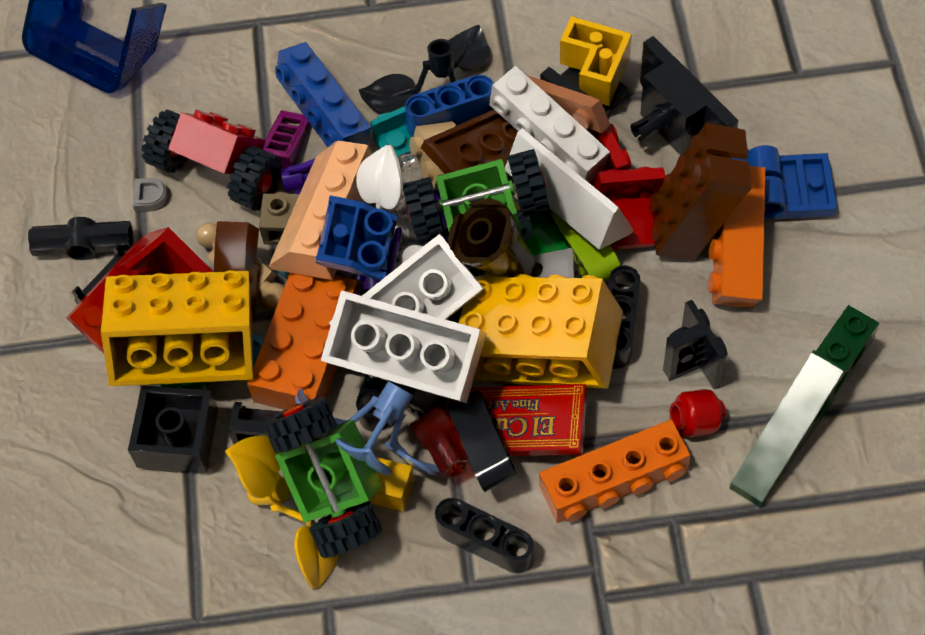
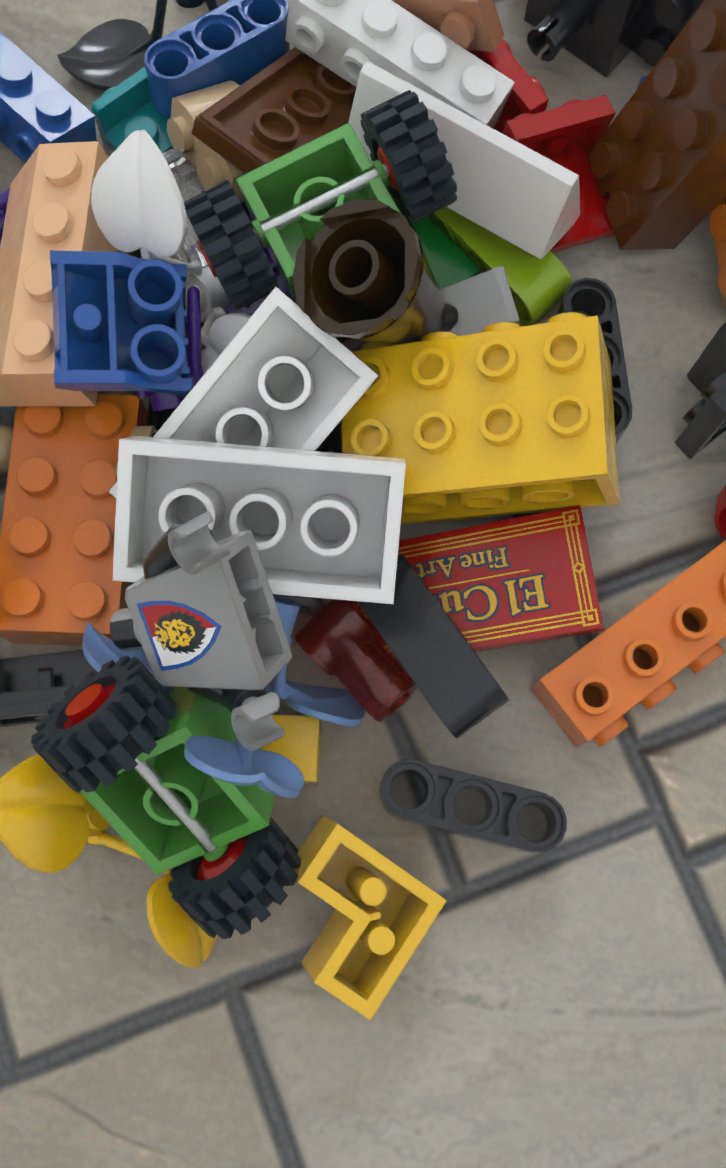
camera: 20 degrees left, 15 degrees up
(362, 383) = (209, 624): none -> light grey torso
(417, 565) = (376, 917): none -> yellow brick

